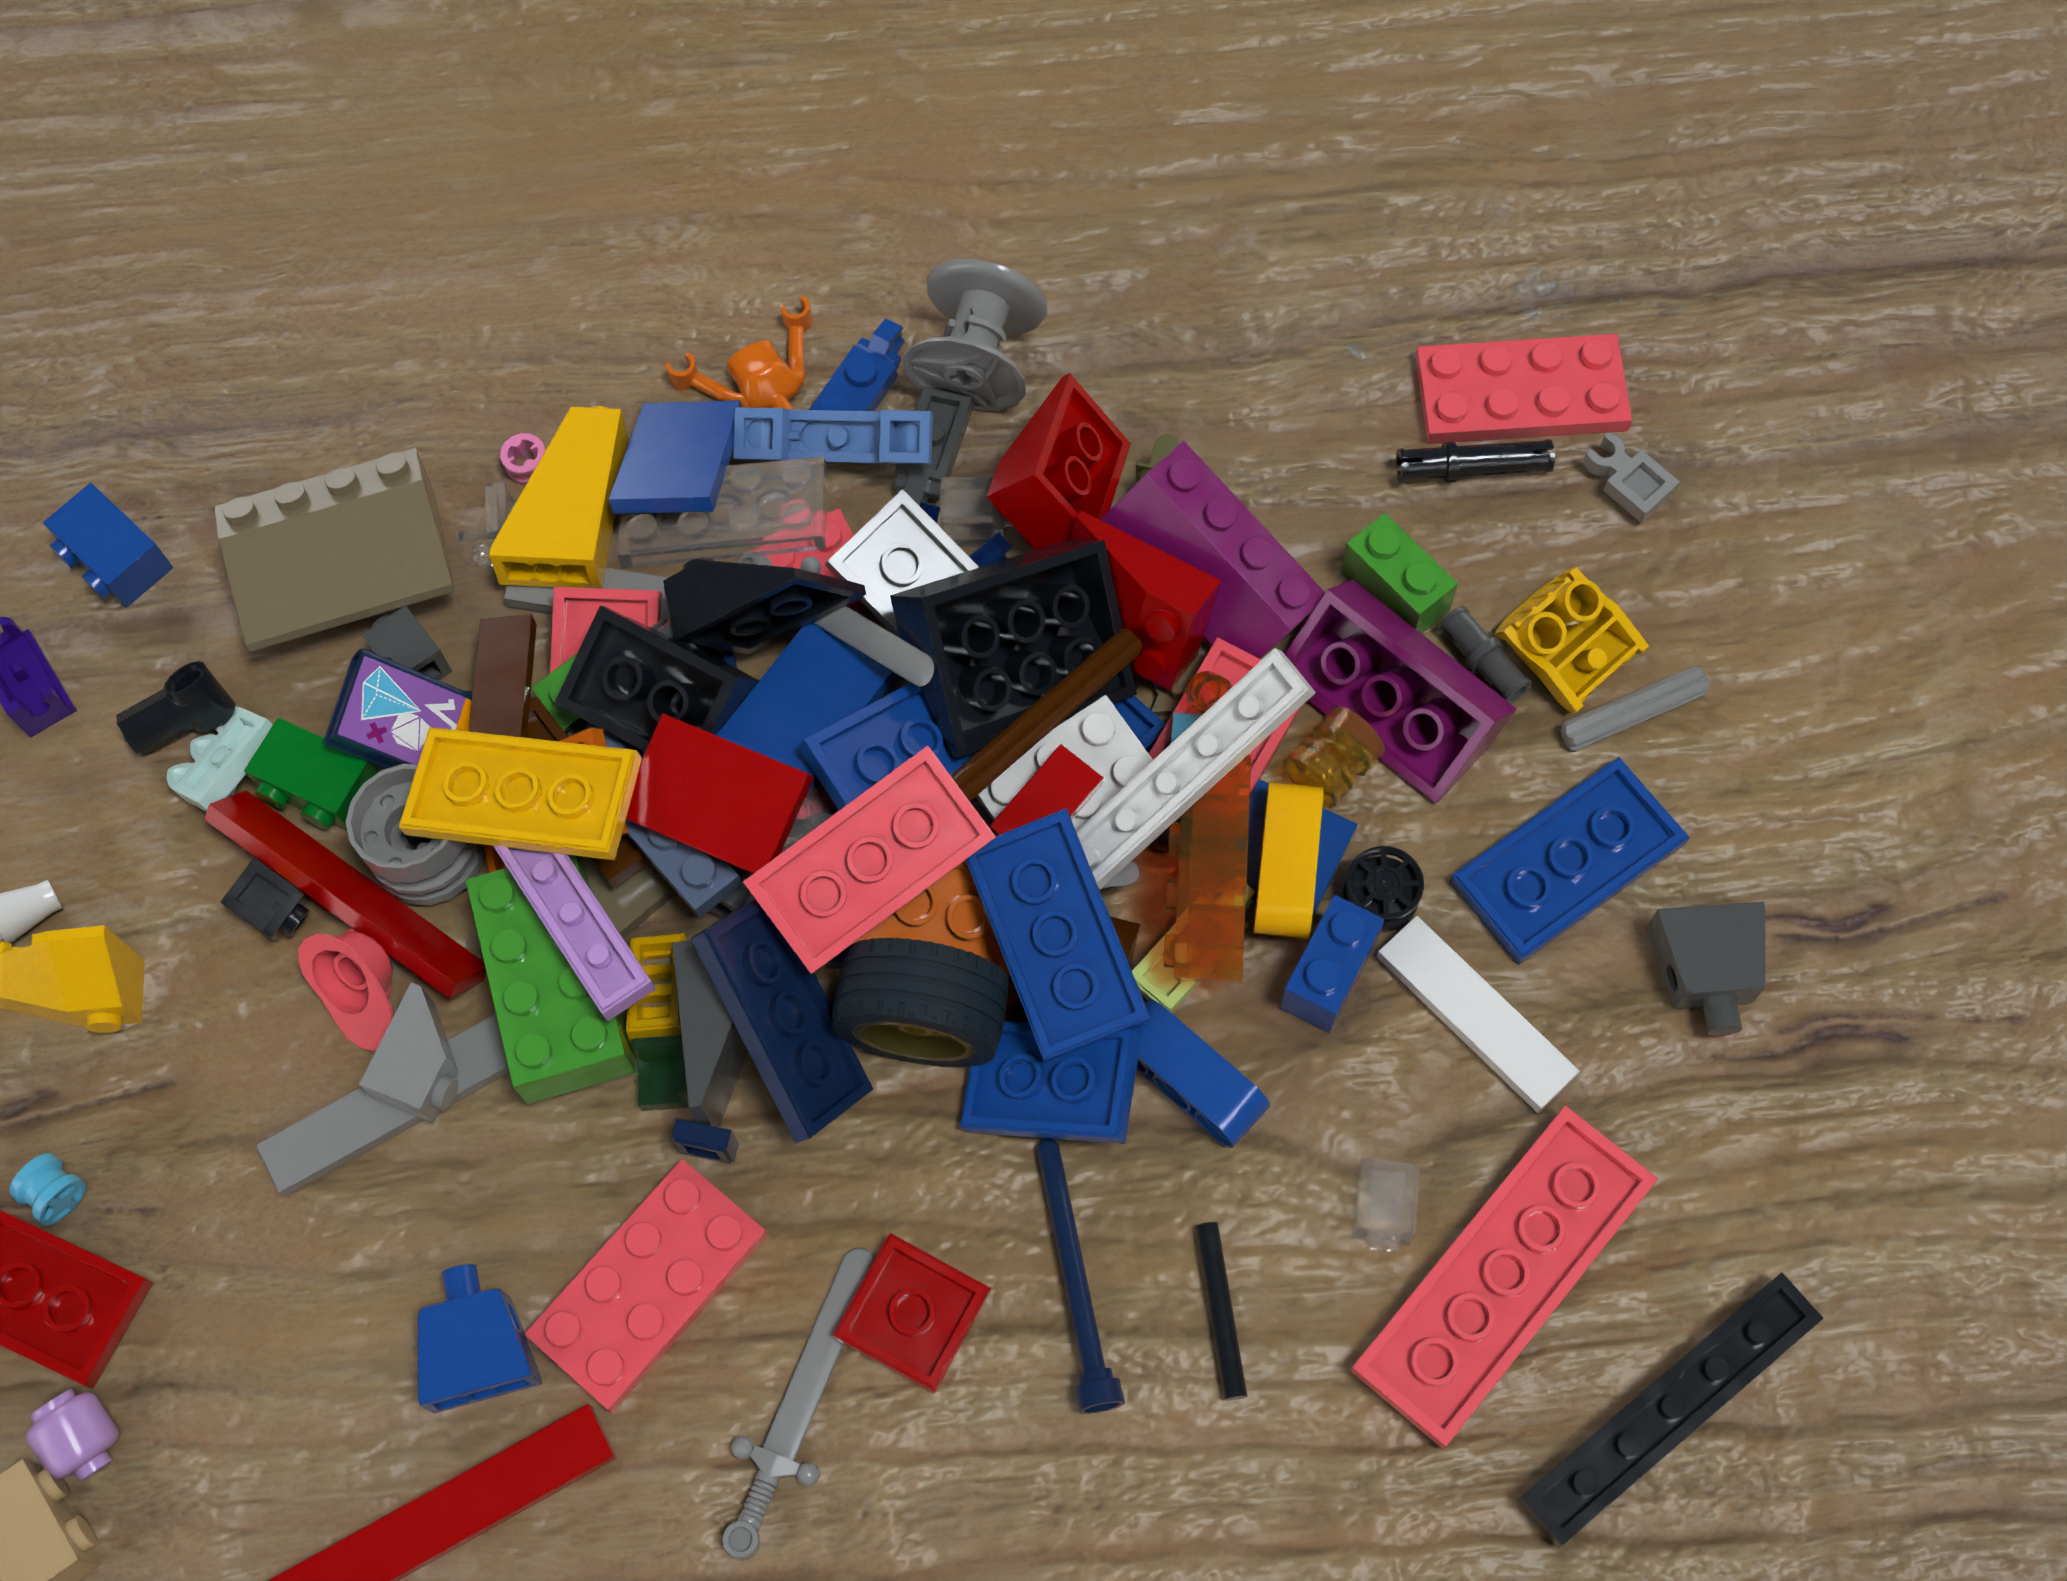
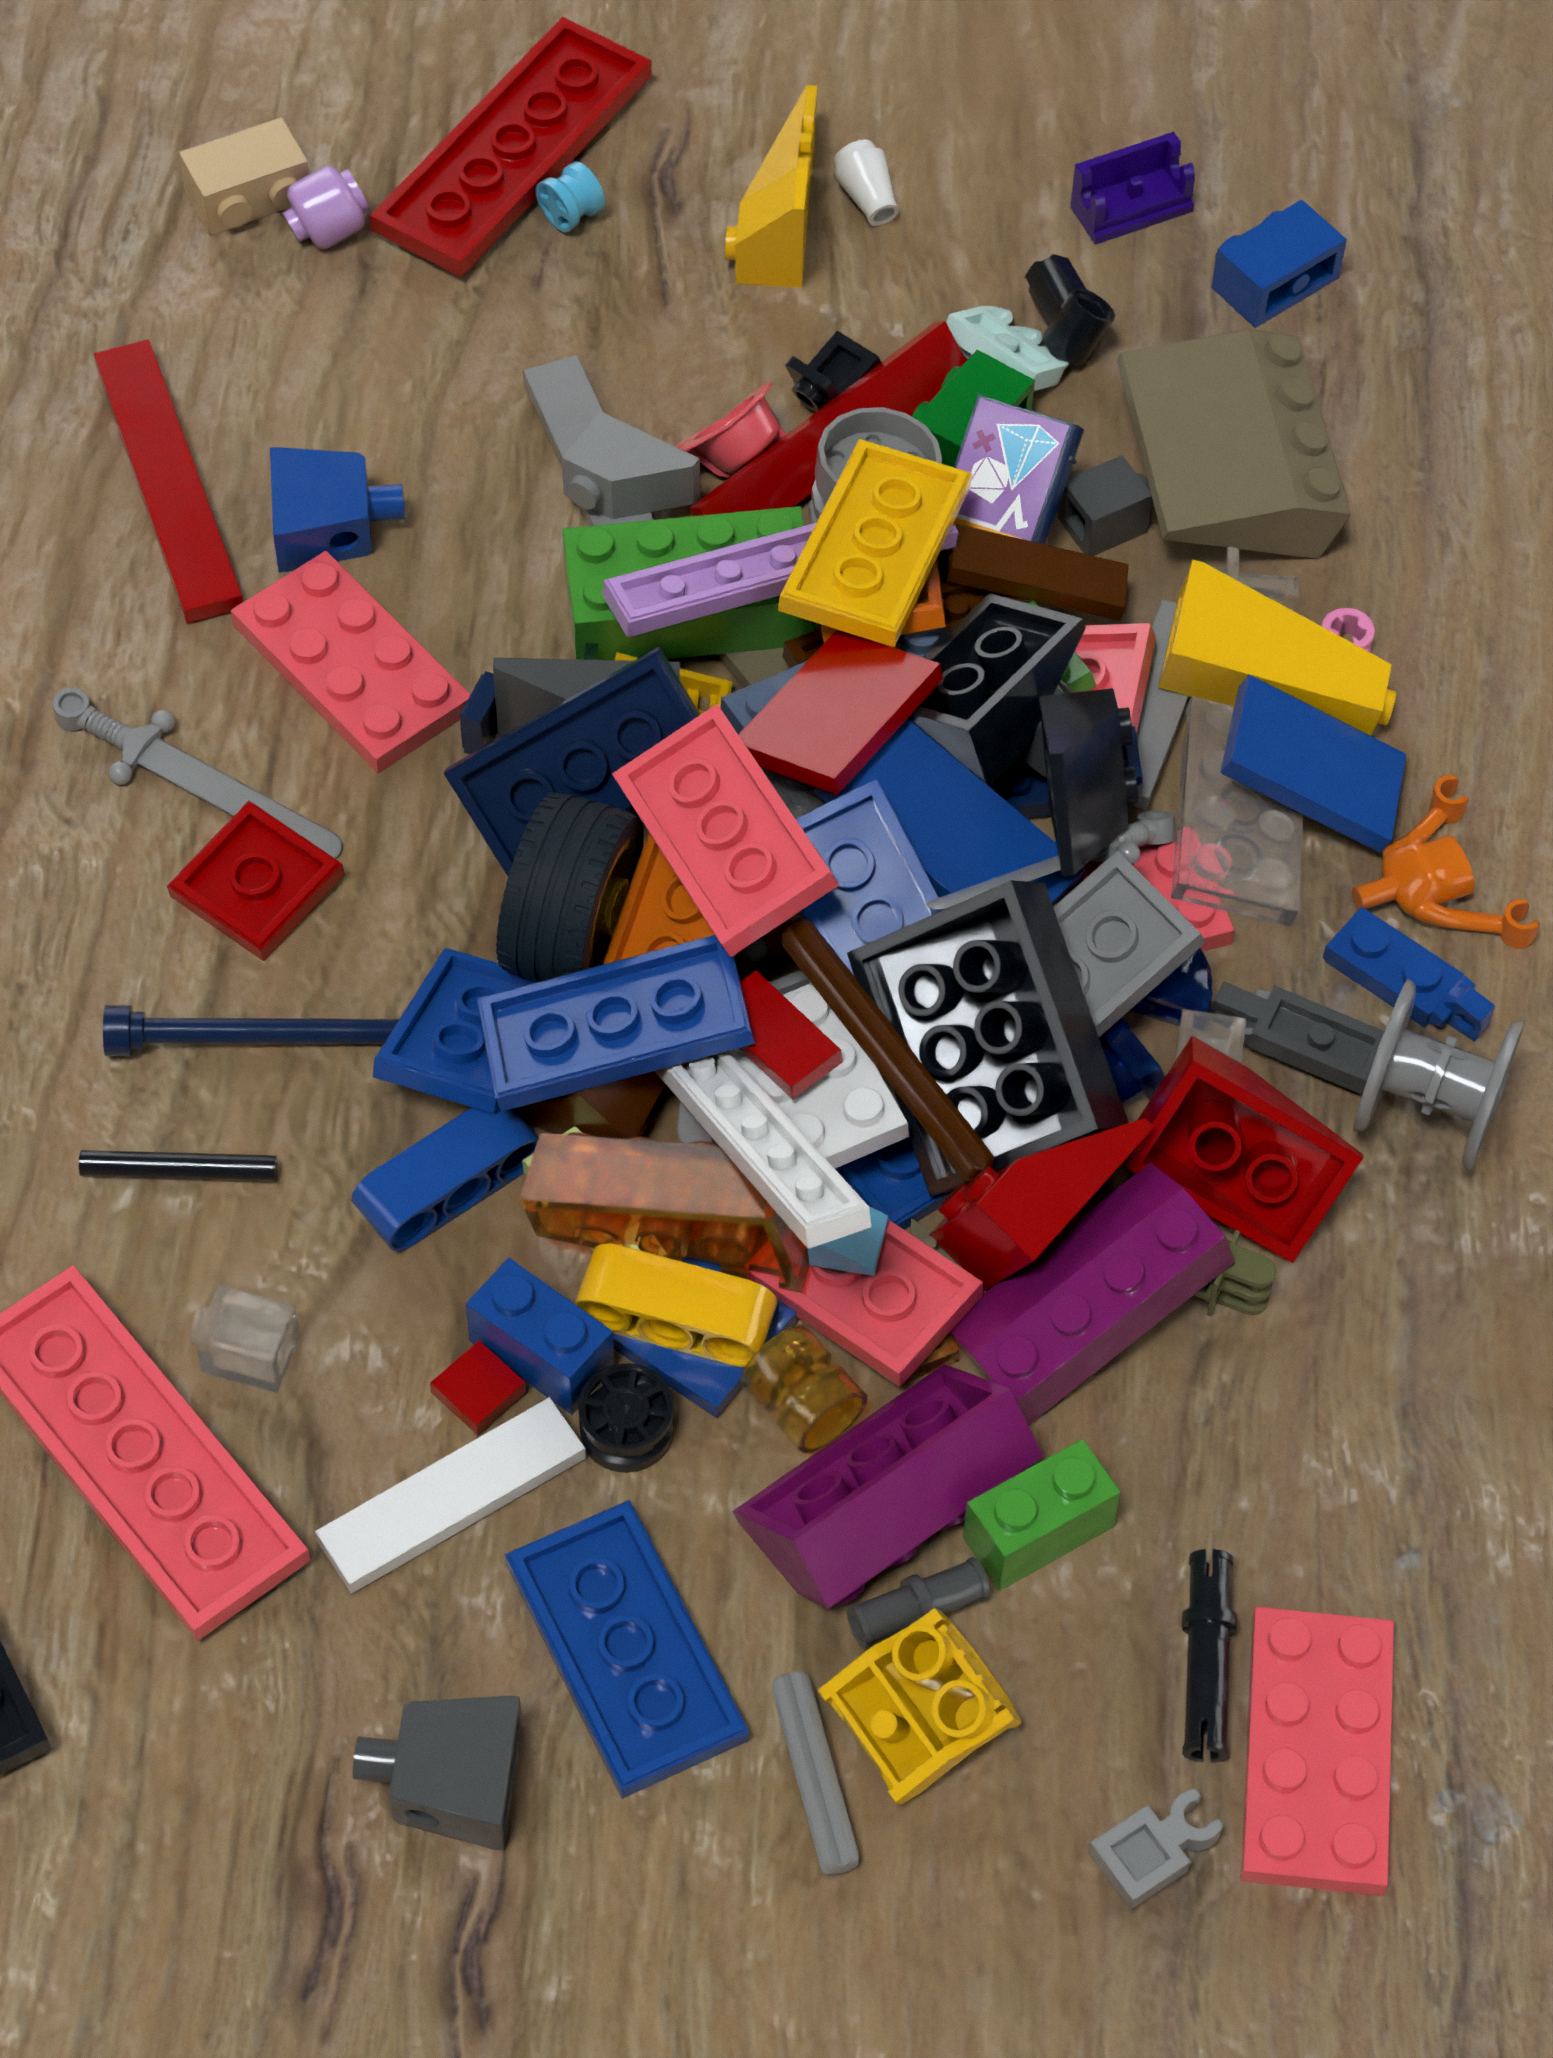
camera: 95 degrees right, 10 degrees down
(836, 435) = (1330, 916): medium blue slope -> none
(1214, 685) = (896, 1237): clear orange hinge -> none
(1377, 1012) = (478, 1387): none -> red tile

